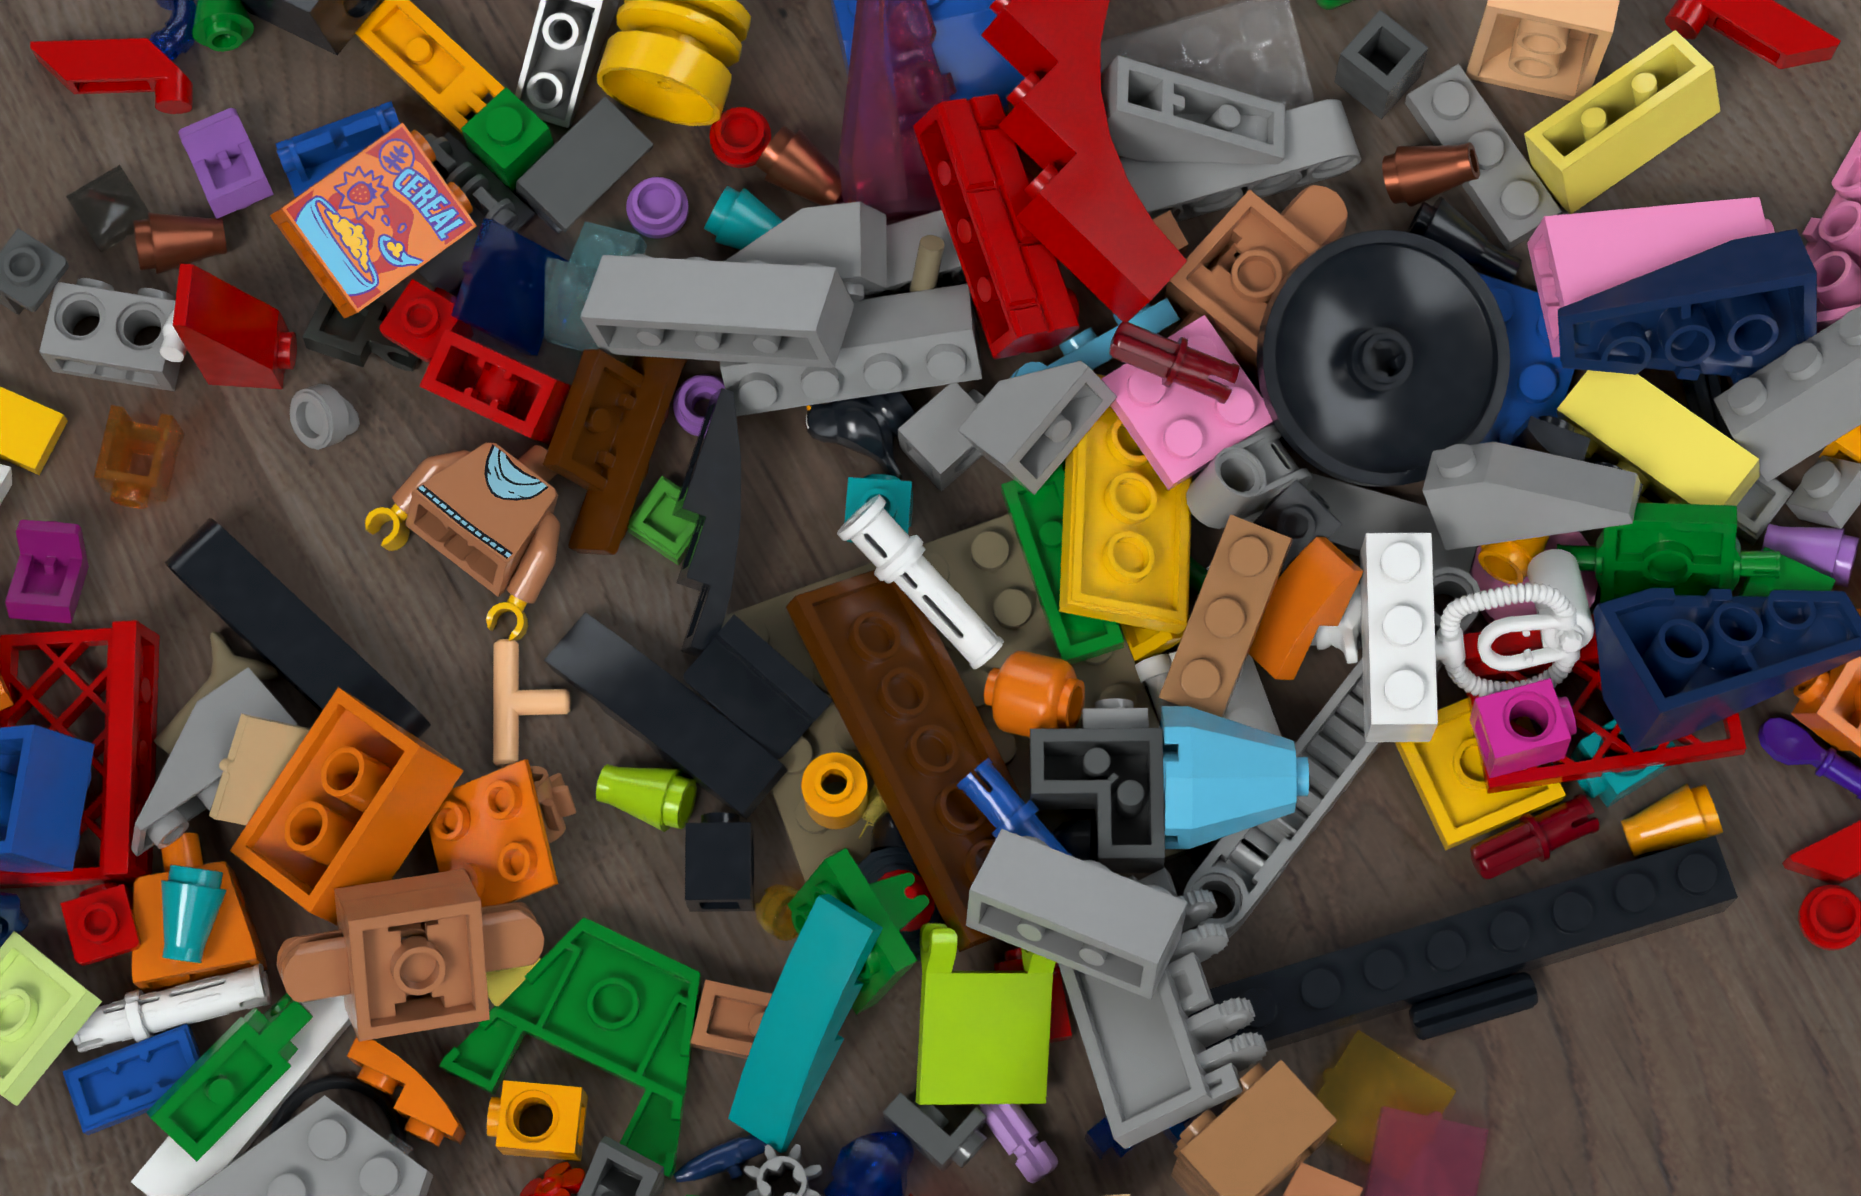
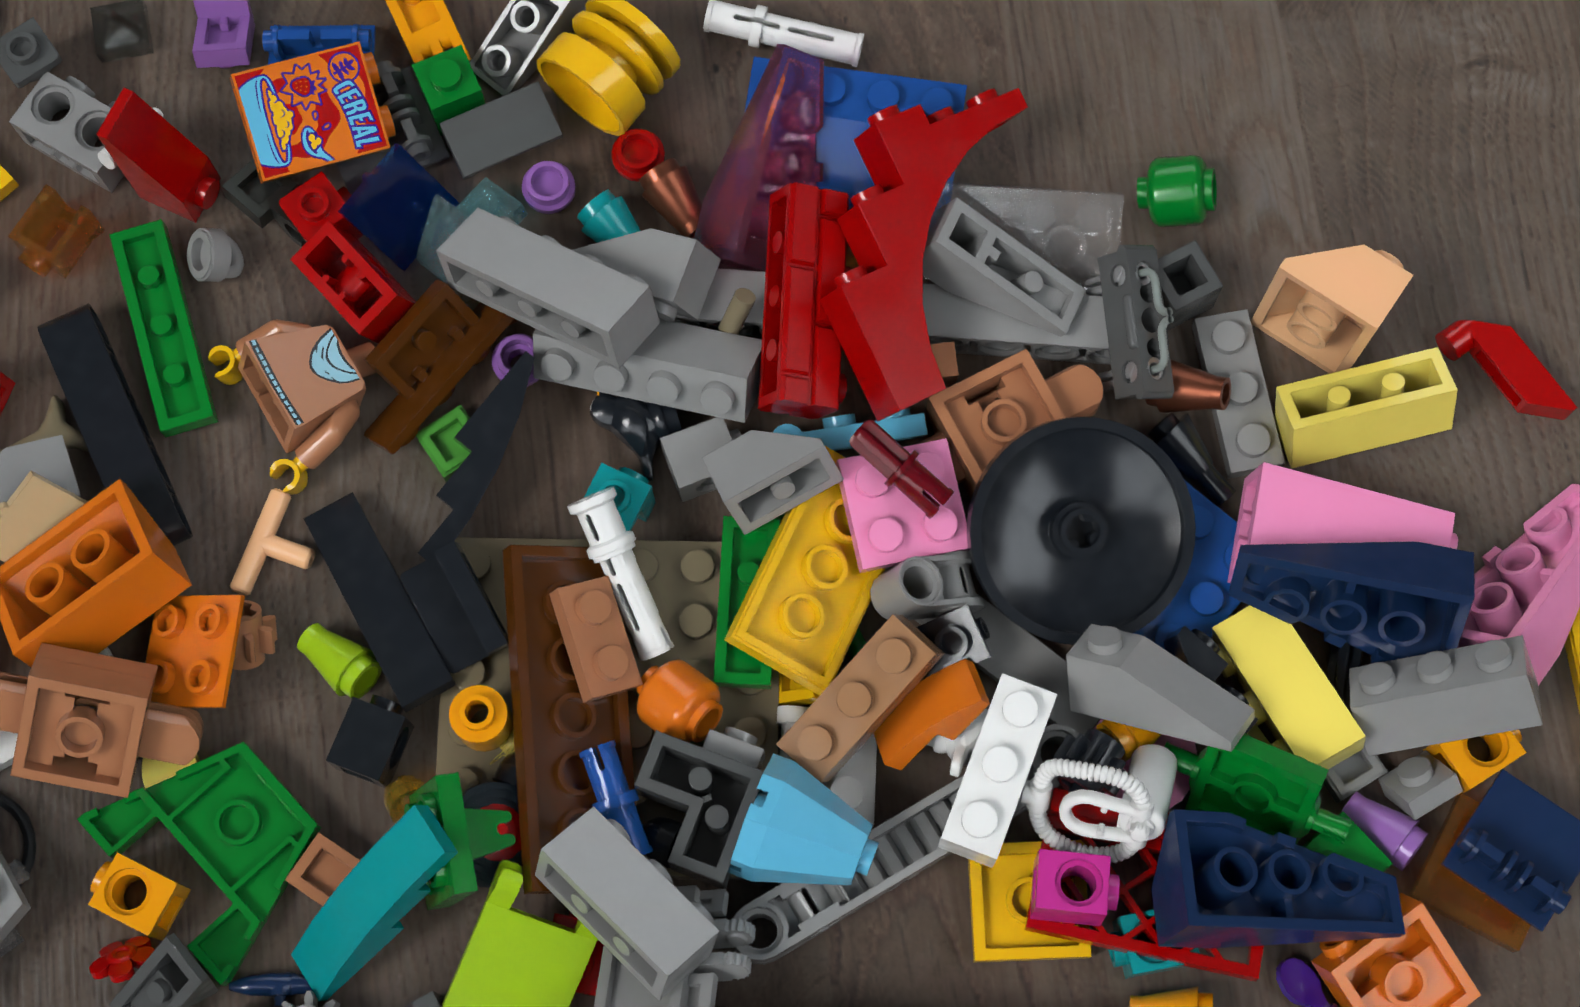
camera: 20 degrees right, 0 degrees up
(174, 240) = (159, 74): copper cone -> none
(302, 514) = (163, 328): none -> green plate
(419, 1102) = (51, 840): orange slope -> none
(922, 662) = (595, 639): none -> nougat plate
(1352, 121) = (1134, 323): none -> dark grey piece
(1482, 575) = (1091, 748): none -> black gear
(1534, 837) = (1051, 981): dark red axle -> none

